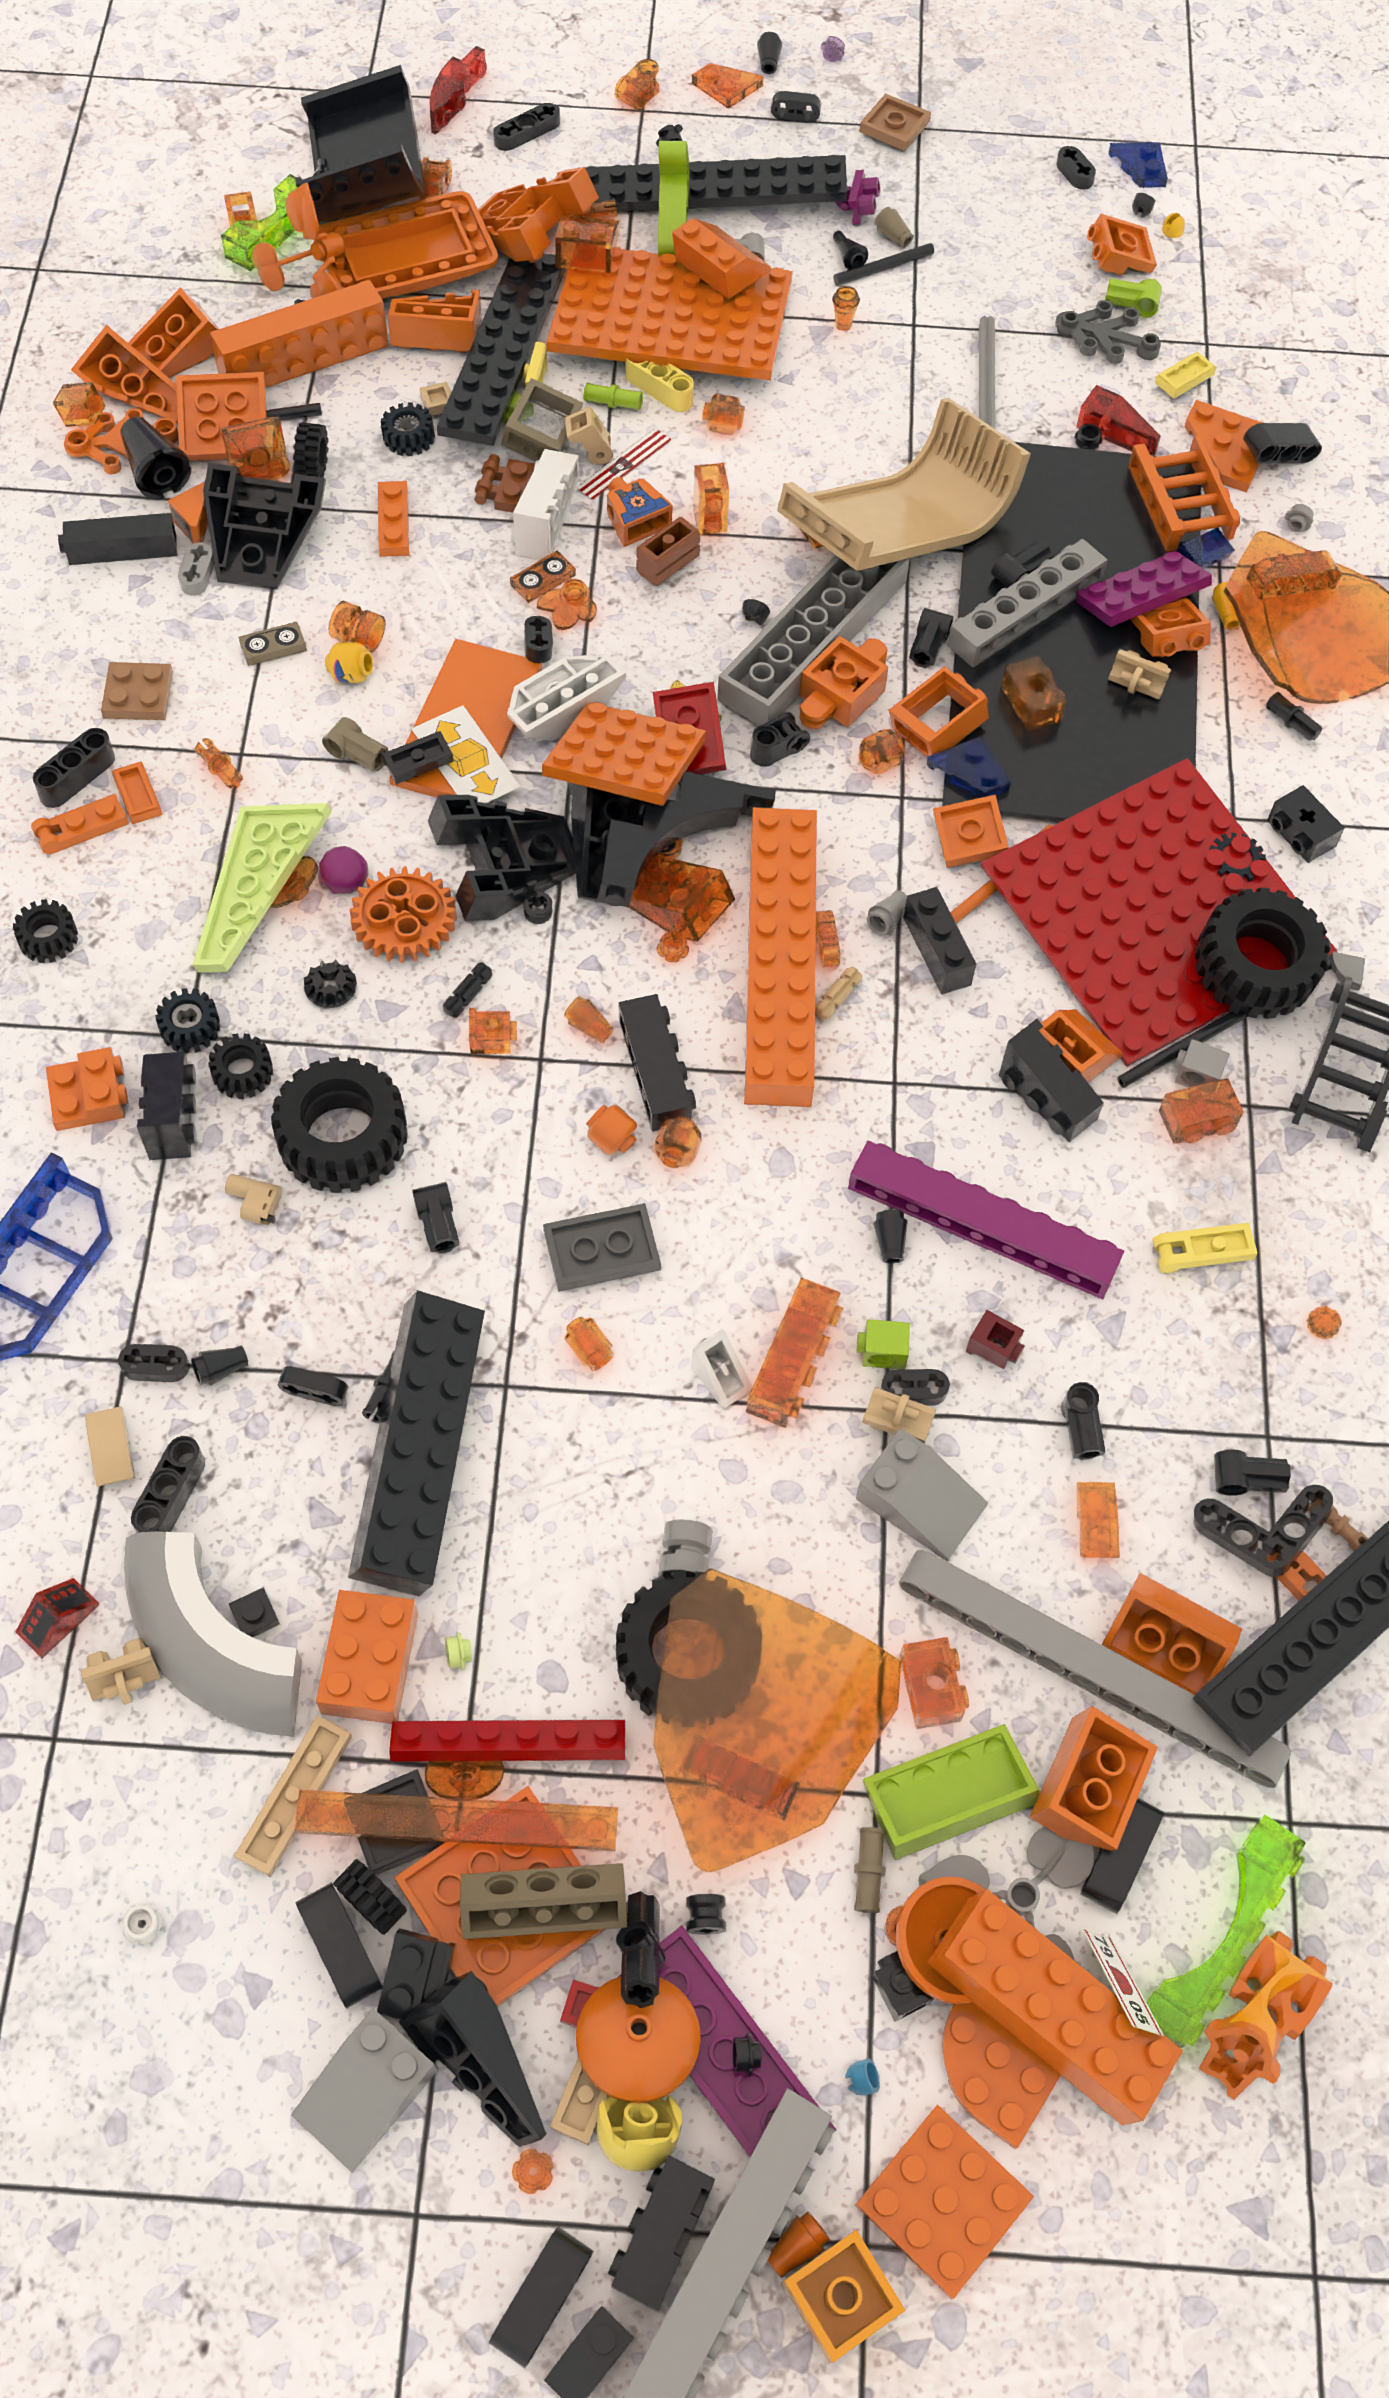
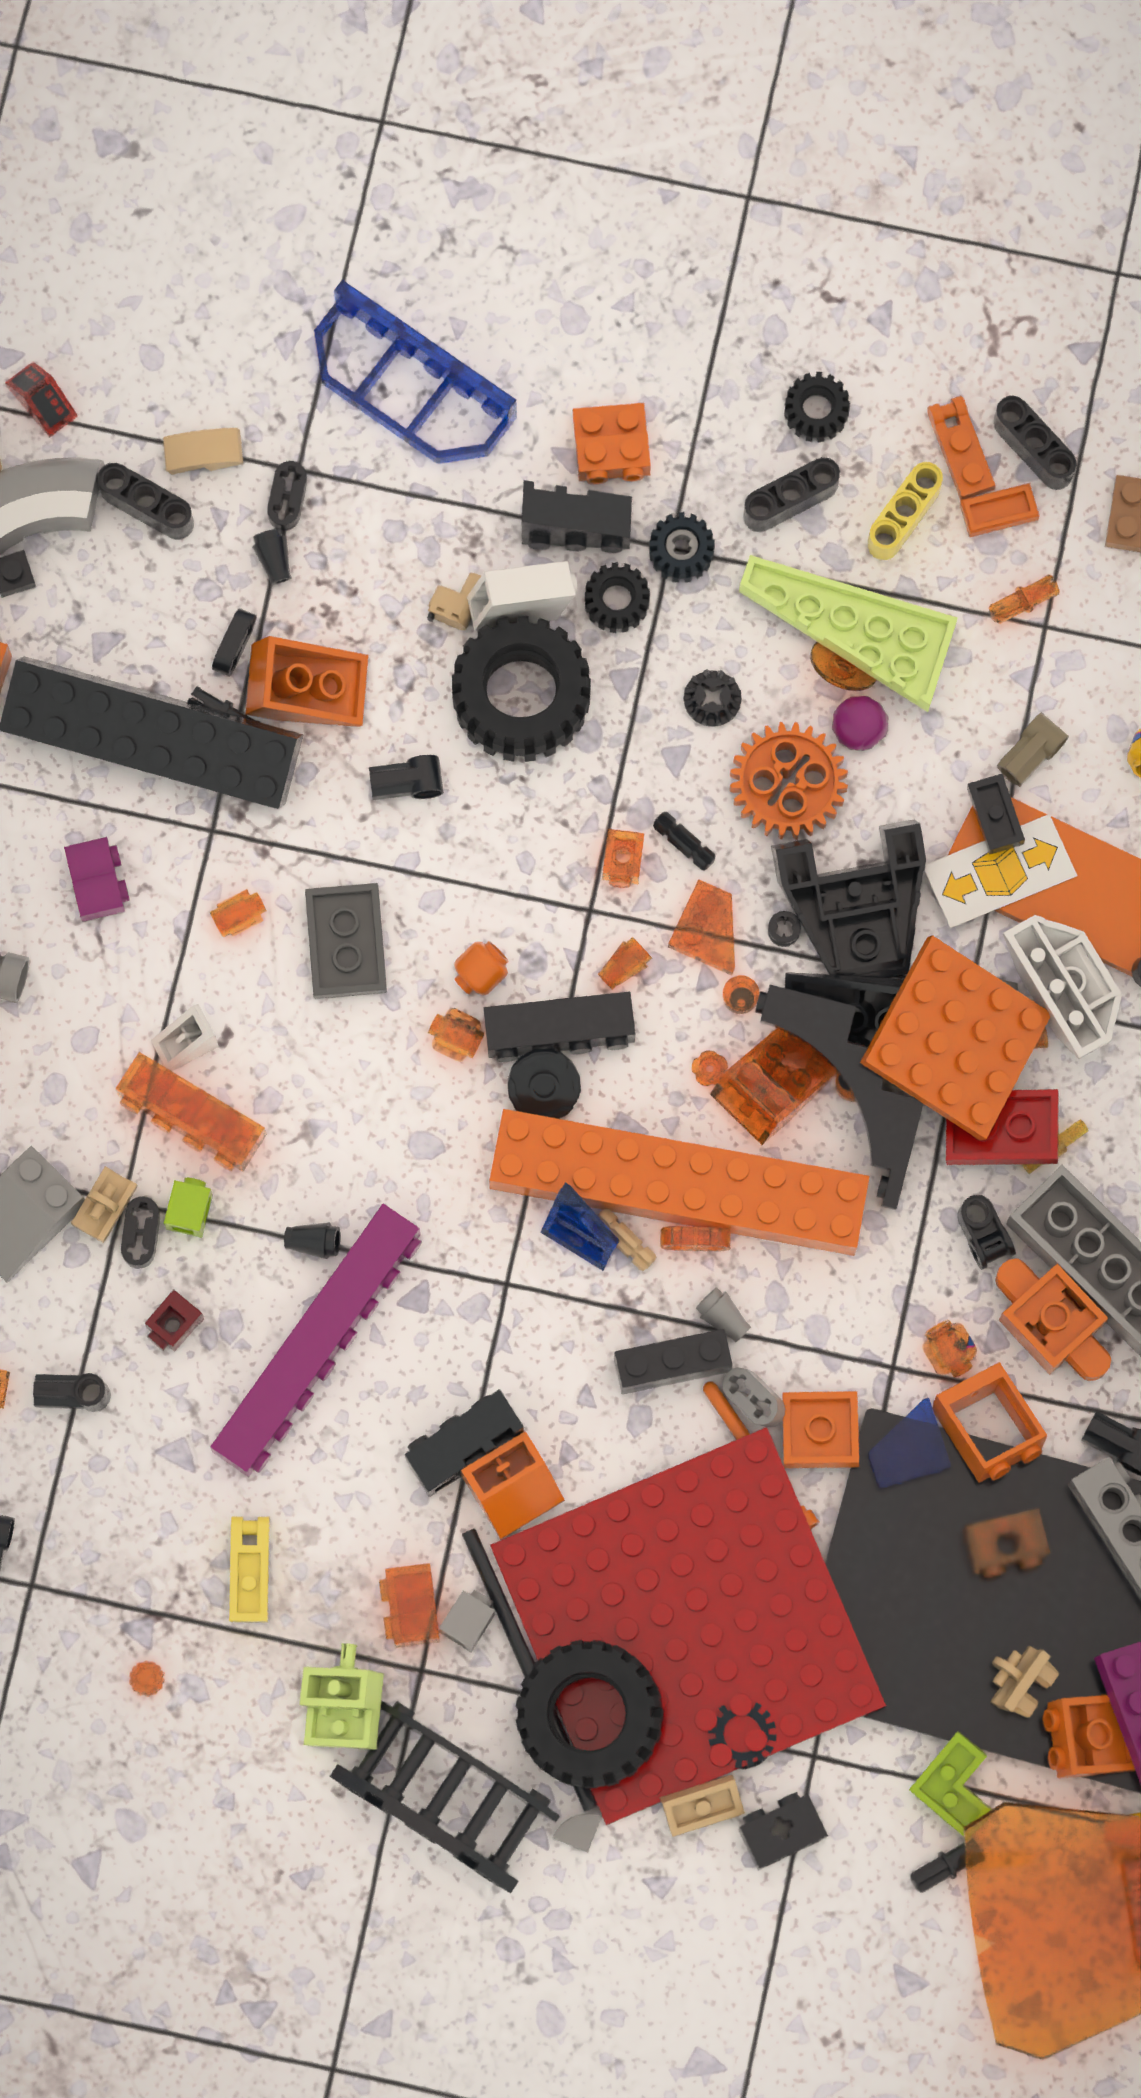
camera: 100 degrees right, 15 degrees up
(121, 927) = (800, 480): none -> black beam
(143, 854) = (909, 495): none -> light yellow beam
(250, 1128) = (522, 591): none -> white brick
(349, 1317) = (306, 683): none -> orange slope
(544, 965) = (707, 928): none -> clear orange wing
(573, 1477) = (95, 878): none -> magenta brick
(601, 934) = (740, 994): none -> clear orange tile
(713, 1065) = (544, 1083): none -> black tile
(839, 1021) = (579, 1229): none -> clear blue wing
(964, 882) = (759, 1391): none -> light grey beam
(1231, 722) = (943, 1783): none -> lime plate
(1302, 880) = (702, 1805): none -> tan plate
(1306, 1149) = (342, 1704): none -> yellowish green plate

